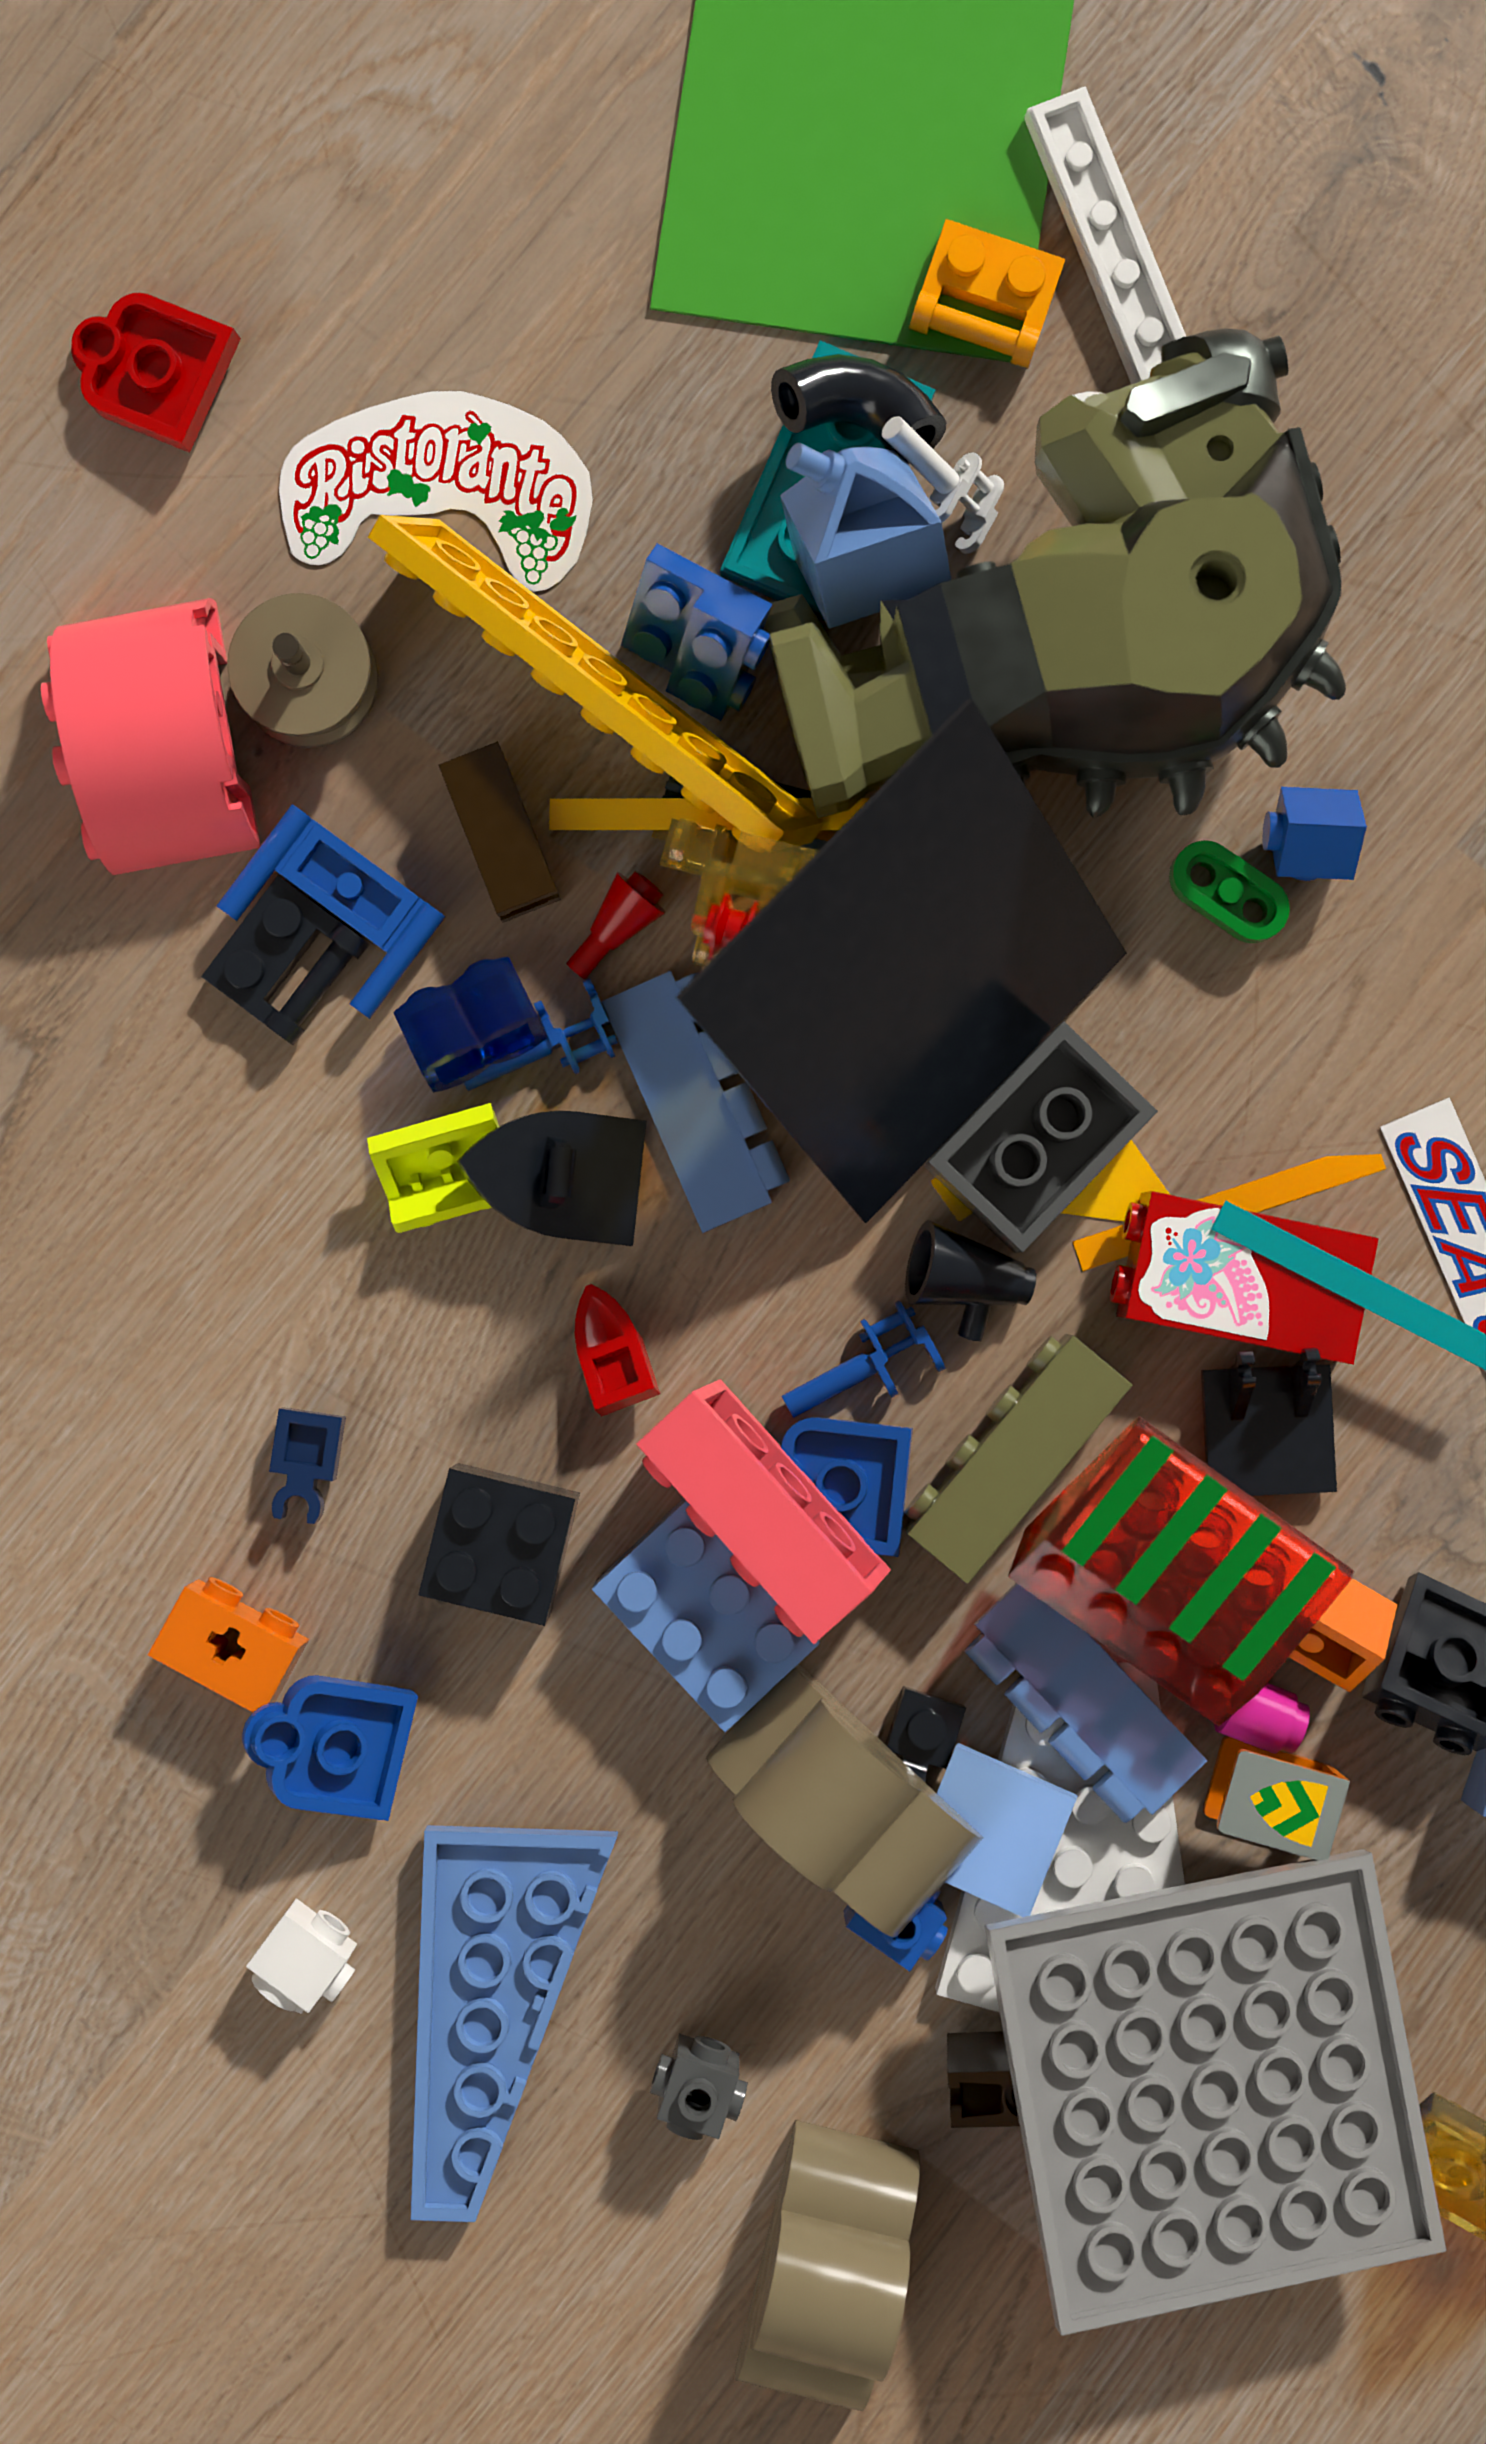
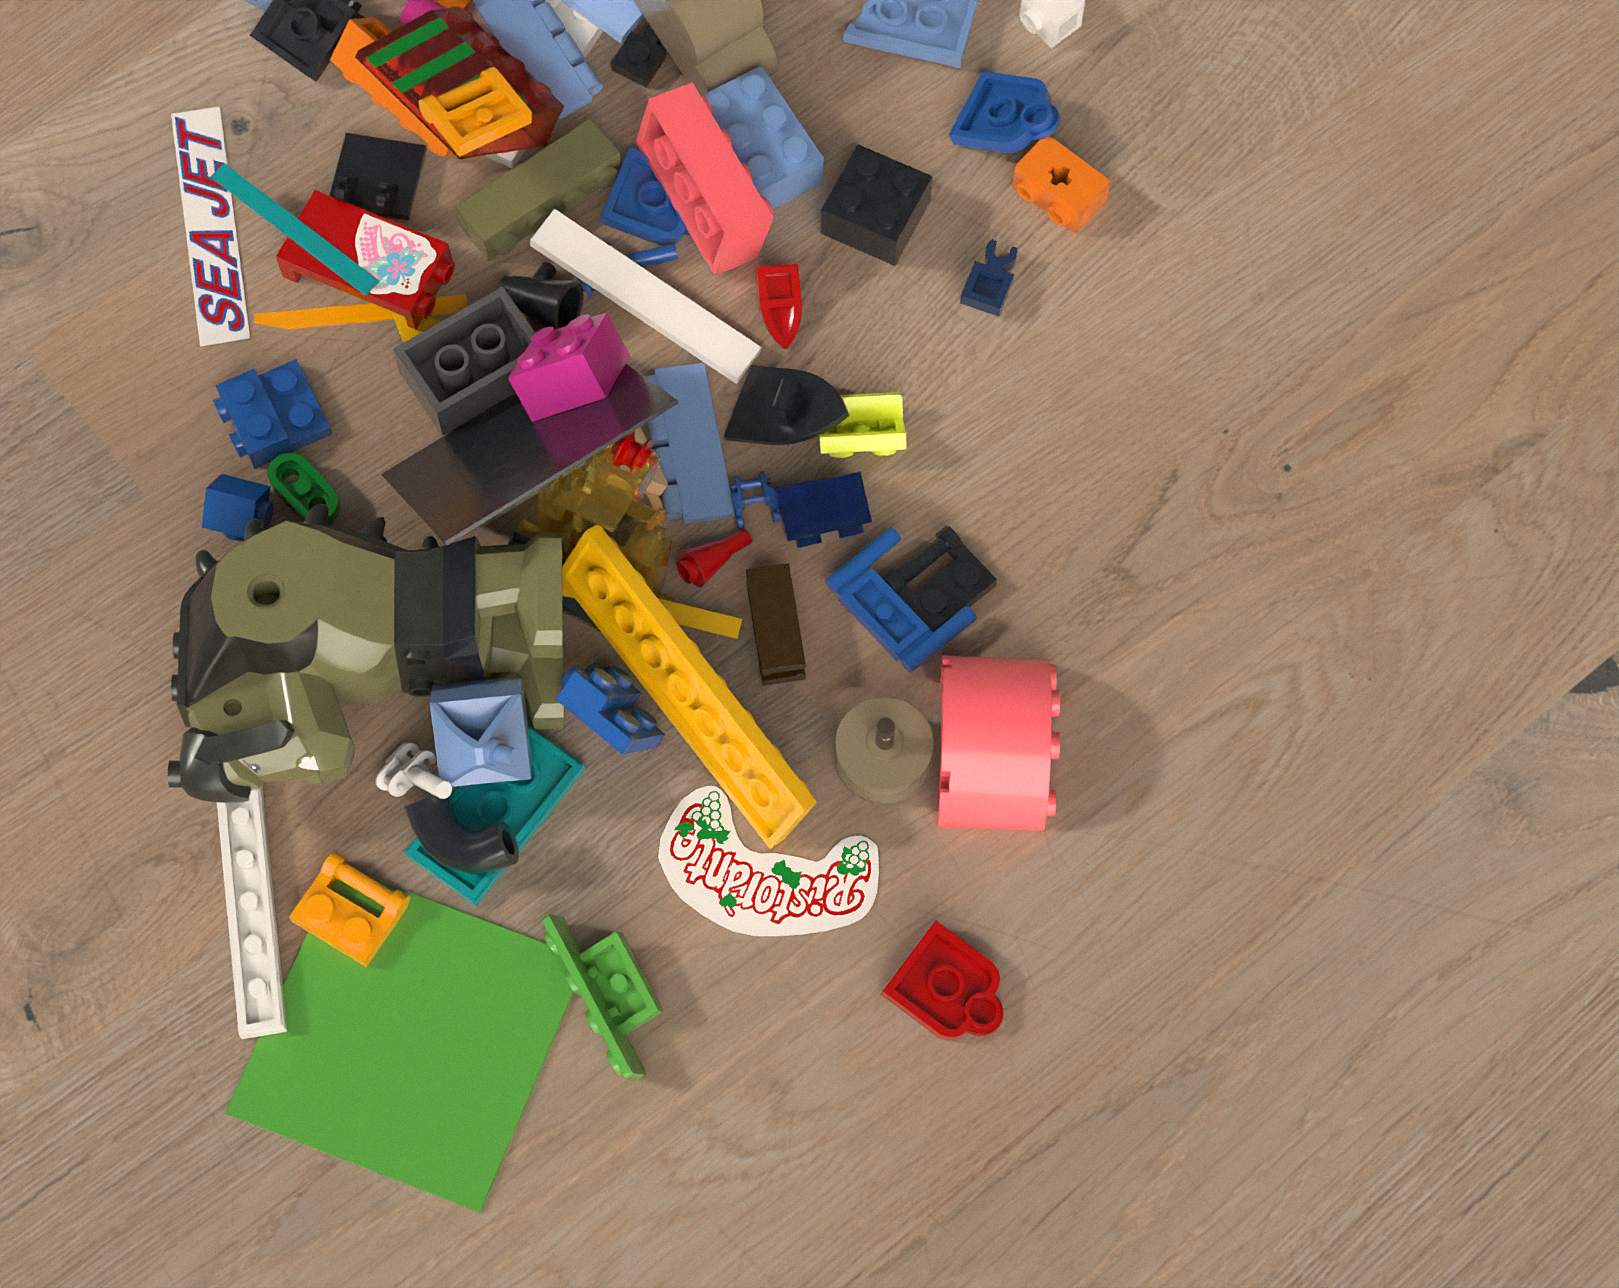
camera: 165 degrees left, 20 degrees down
(606, 253) = (610, 986): none -> bright green bracket
(813, 1310) = (645, 296): none -> white tile
(879, 1108) = (569, 366): none -> dark pink brick
(1119, 1482) = (481, 119): none -> light orange plate
(1312, 1005) = (271, 412): none -> blue plate

